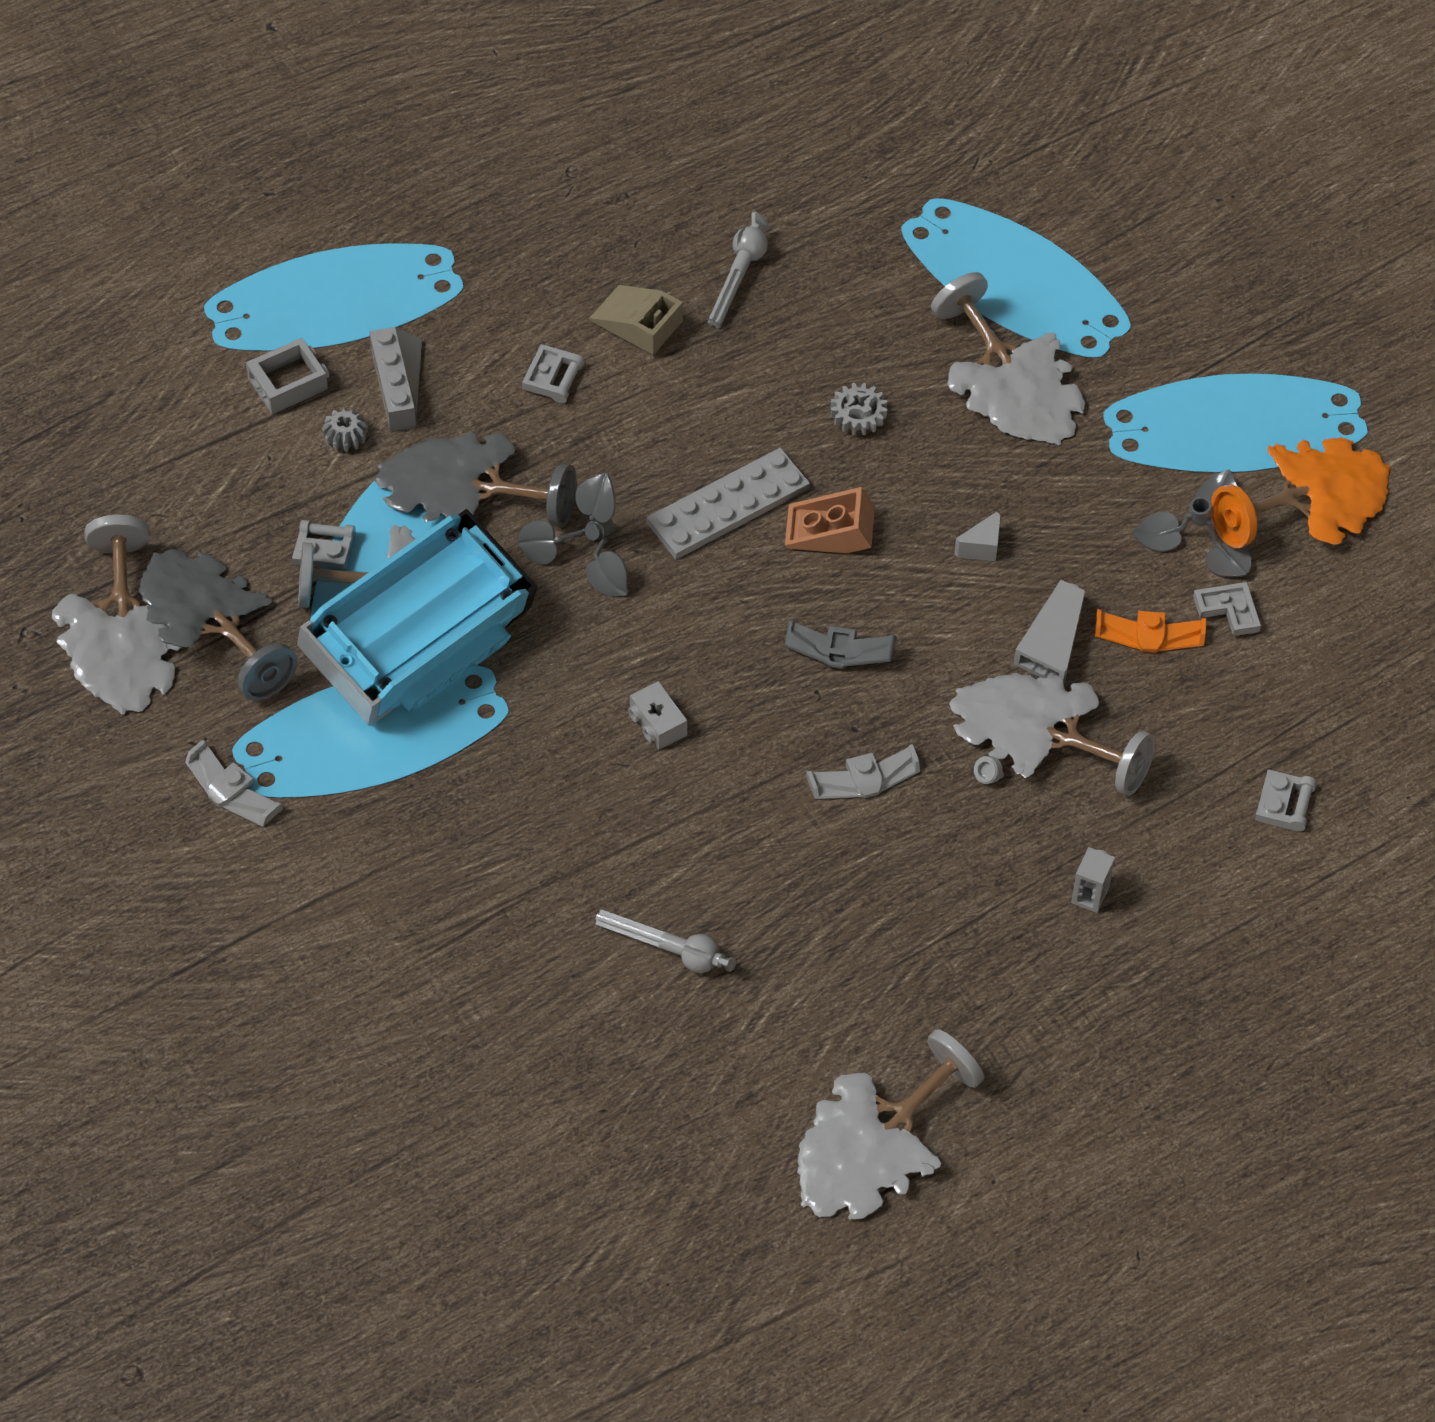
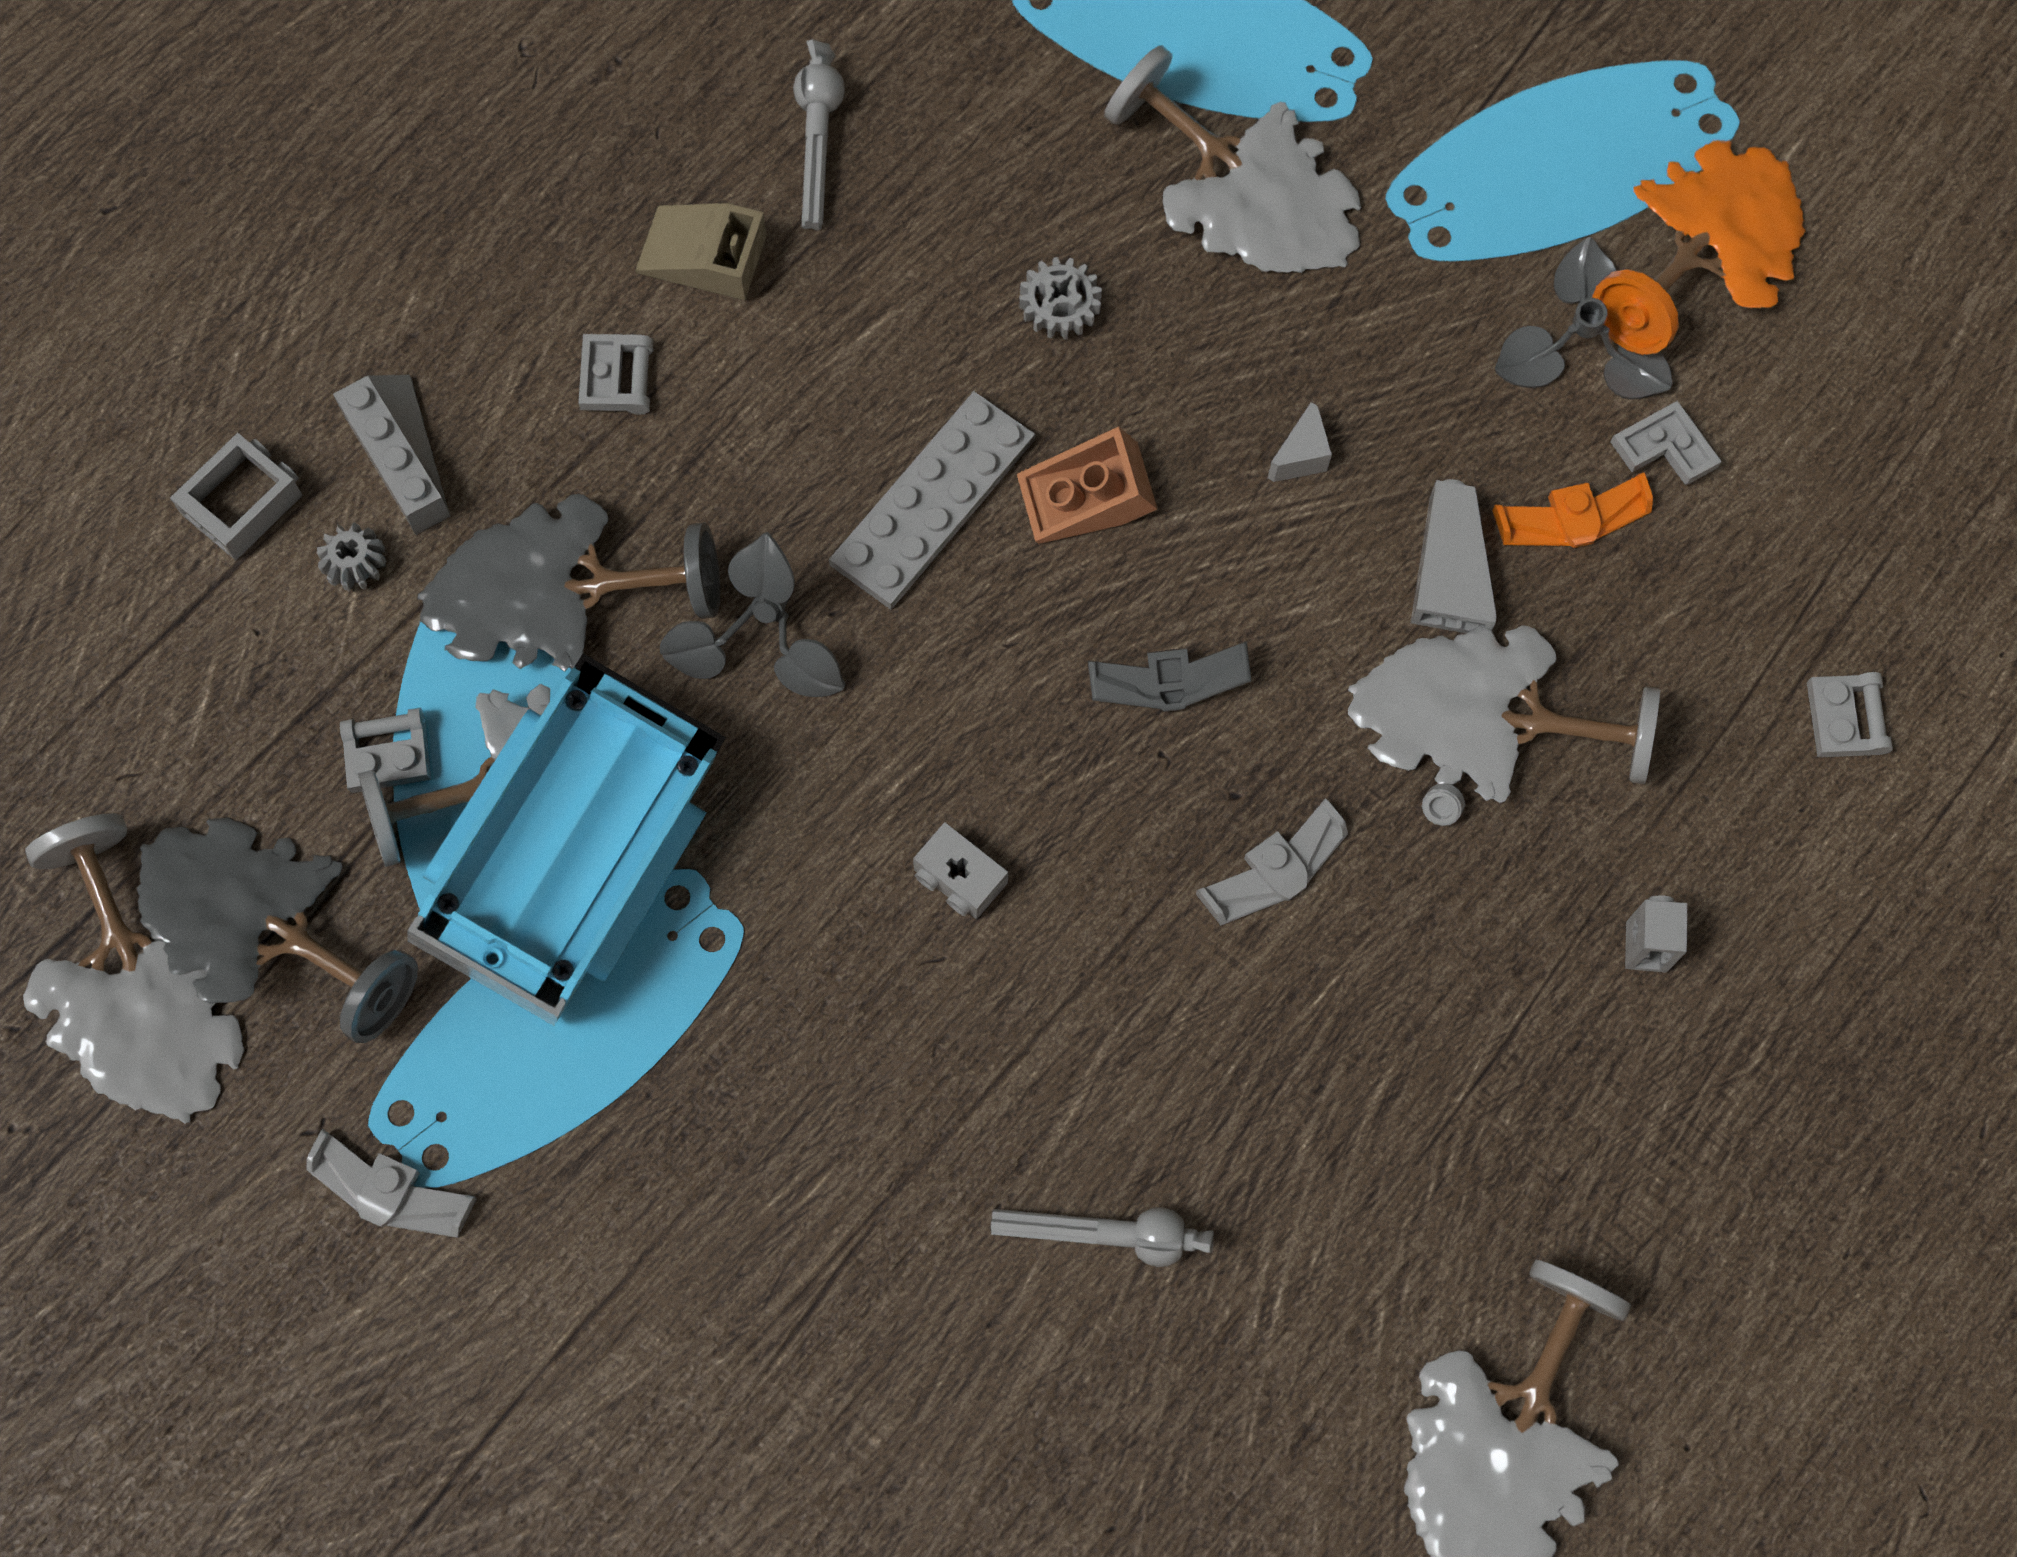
camera: 20 degrees left, 15 degrees up
(333, 296) = (257, 346): medium azure piece -> none

